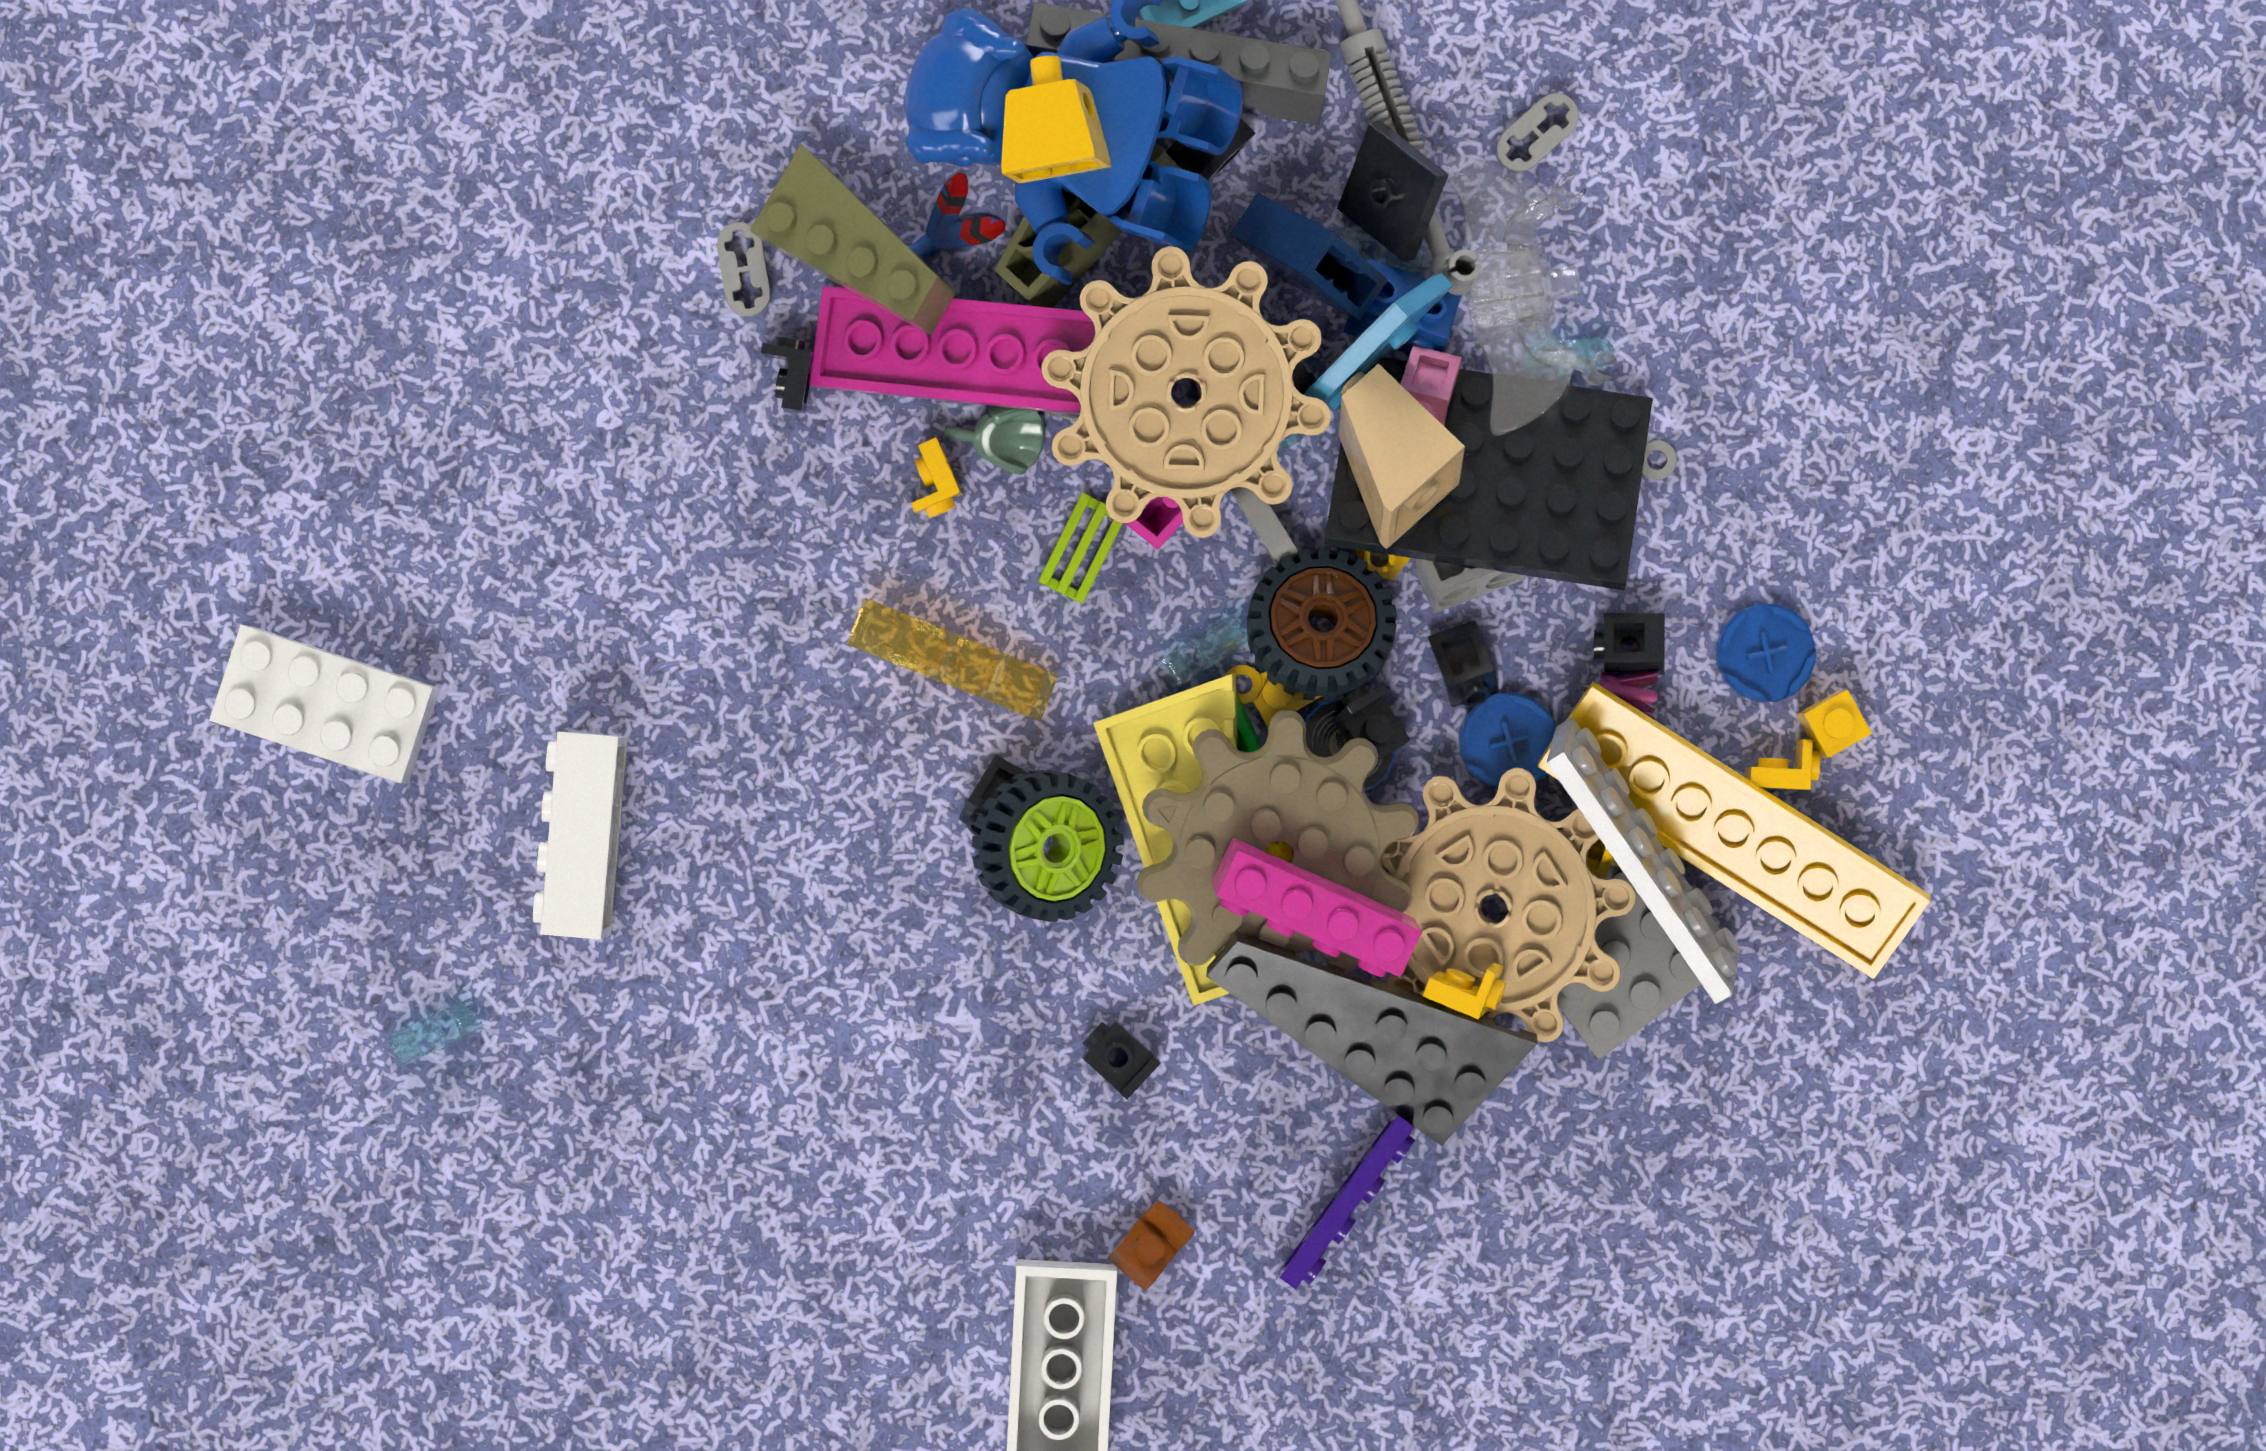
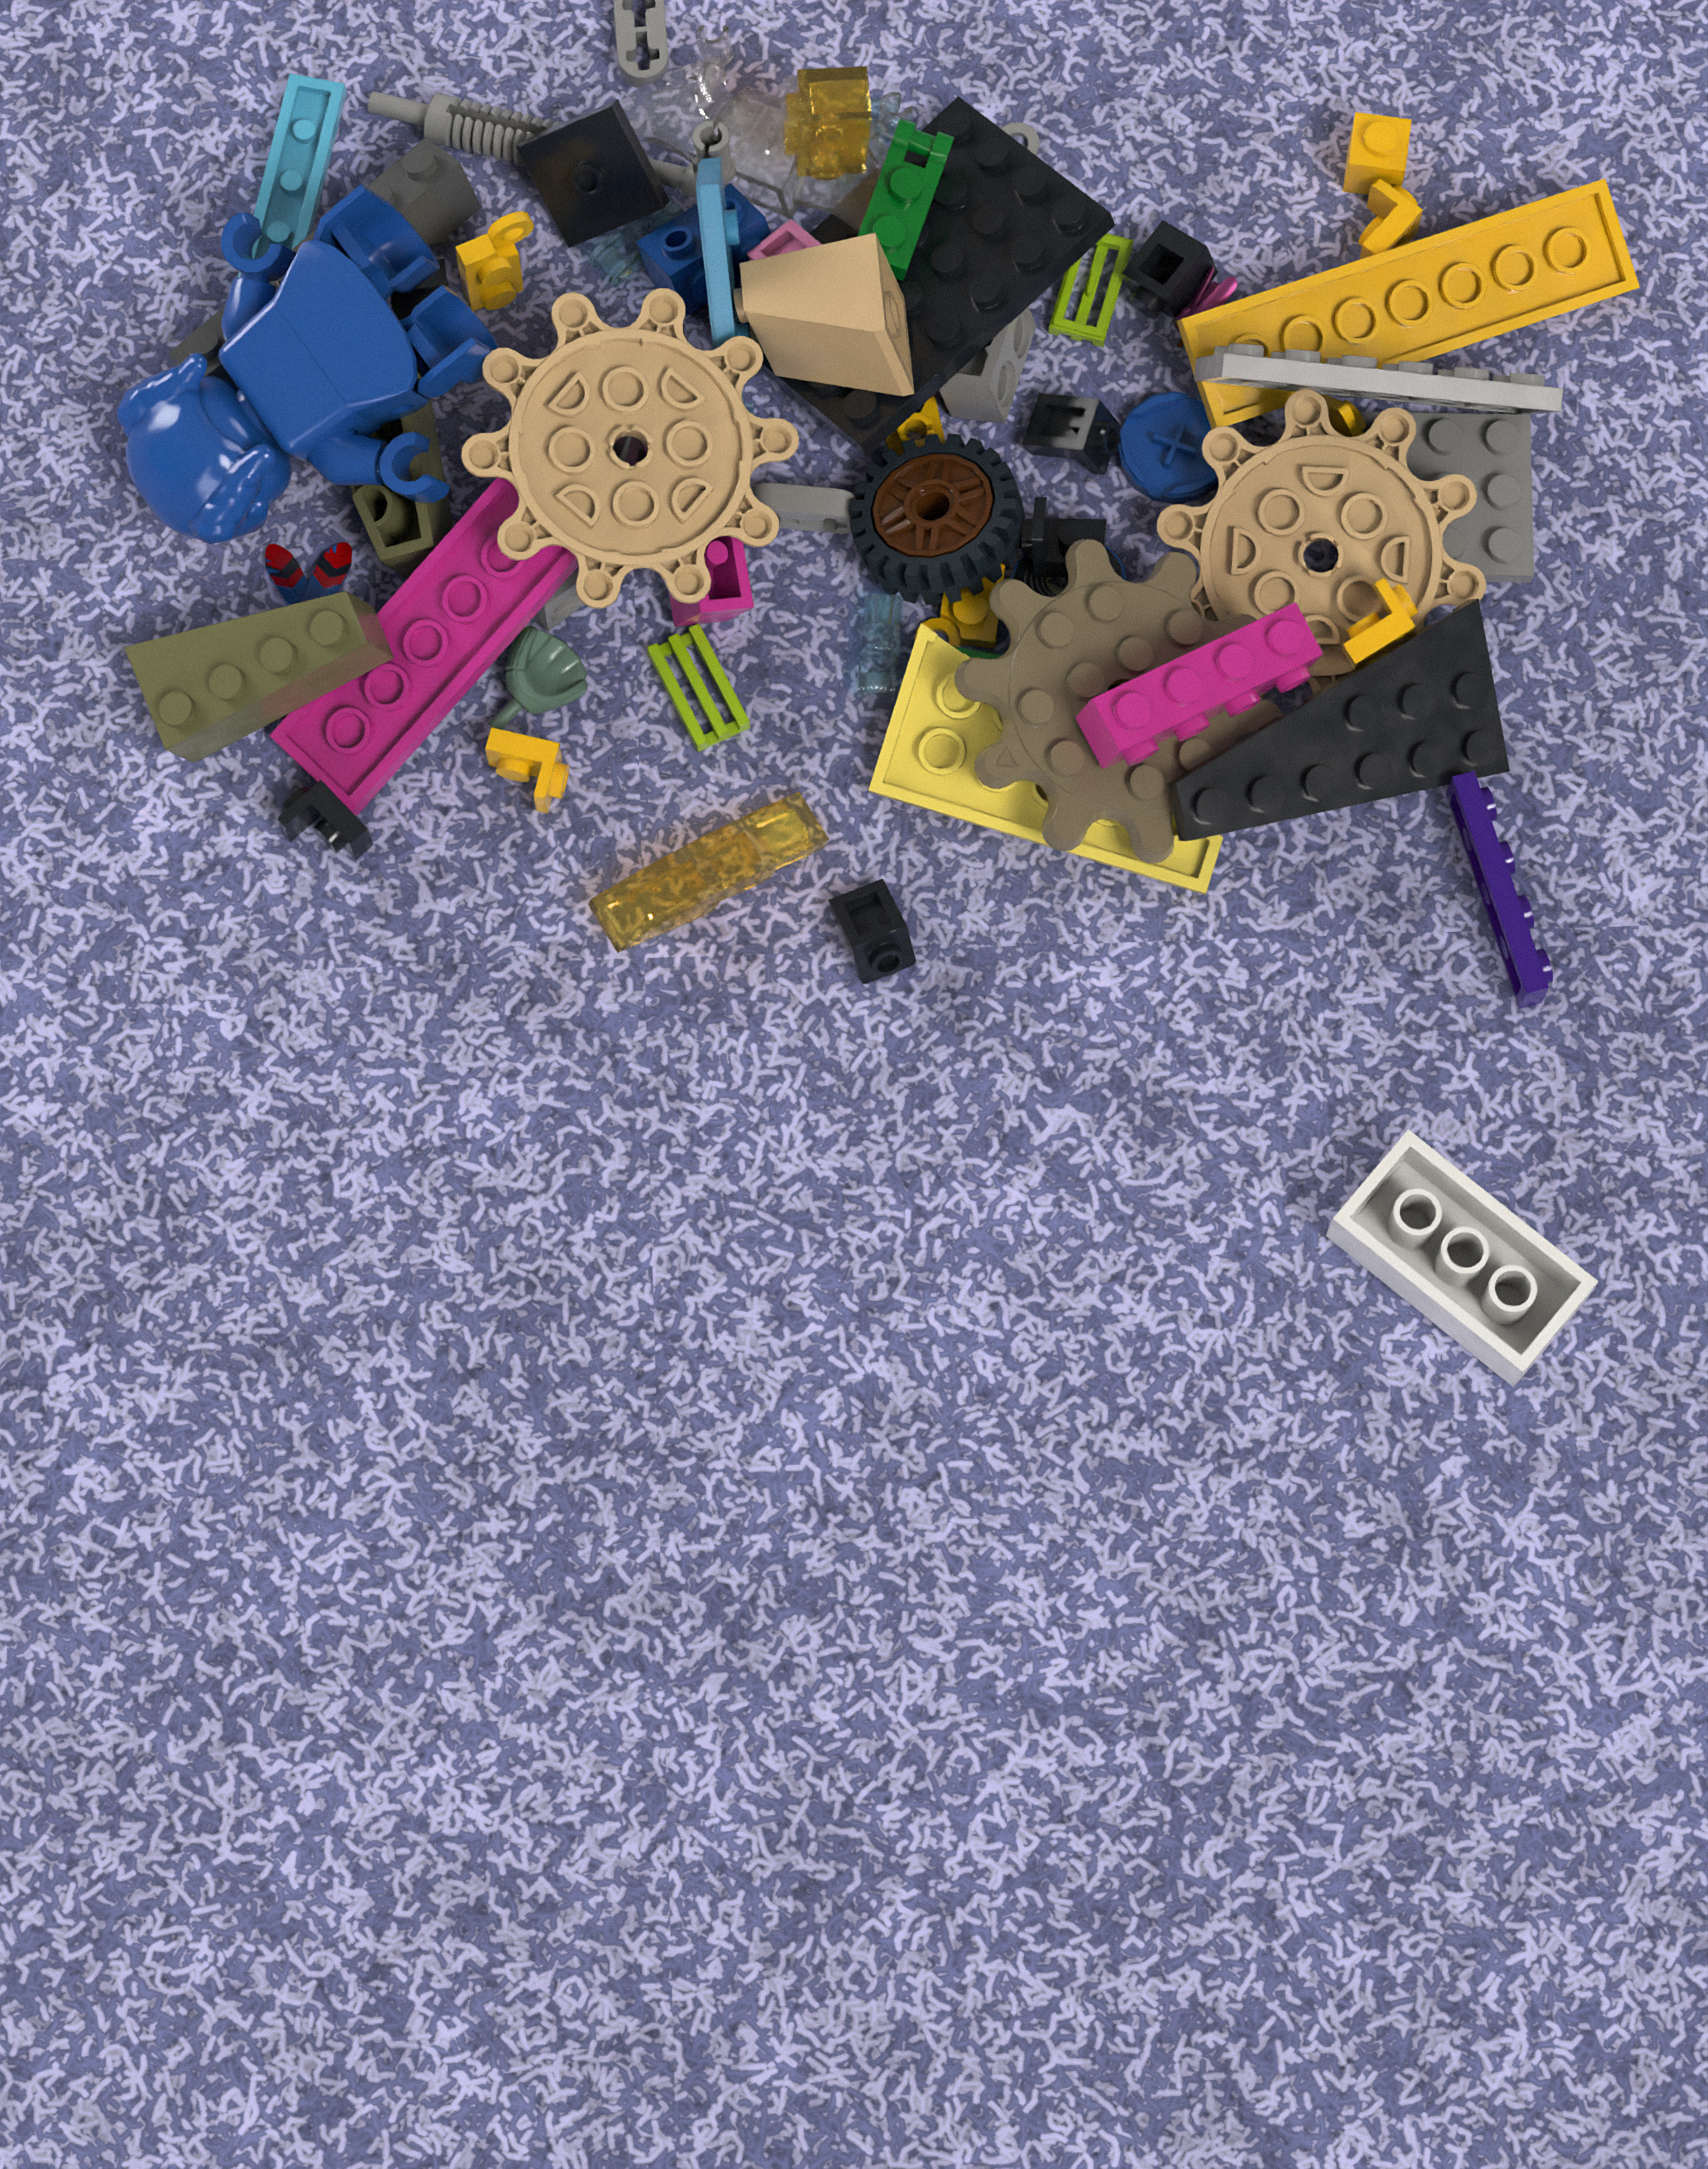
camera: 55 degrees left, 15 degrees down
(324, 704) = (285, 1479): white brick -> none
(428, 1035) = (679, 1627): clear light blue bar -> none
(582, 835) = (603, 1321): white brick -> none
(732, 272) = (190, 809): light grey beam -> none
(1014, 839) = (951, 904): wheel -> none
(1051, 127) = (295, 372): yellow torso -> none
(1134, 1072) = (1192, 1015): black brick -> none
(1151, 1244) = (1404, 1092): dark orange bracket -> none
(1271, 176) = (491, 263): none -> yellow hinge
(1309, 256) = (601, 257): dark blue brick -> none
(1529, 426) = (905, 193): none -> green plate
(1539, 338) = (828, 122): none -> clear yellow brick
(1546, 609) = (1078, 329): none -> lime tile
(1766, 653) = (1266, 174): blue tile -> none

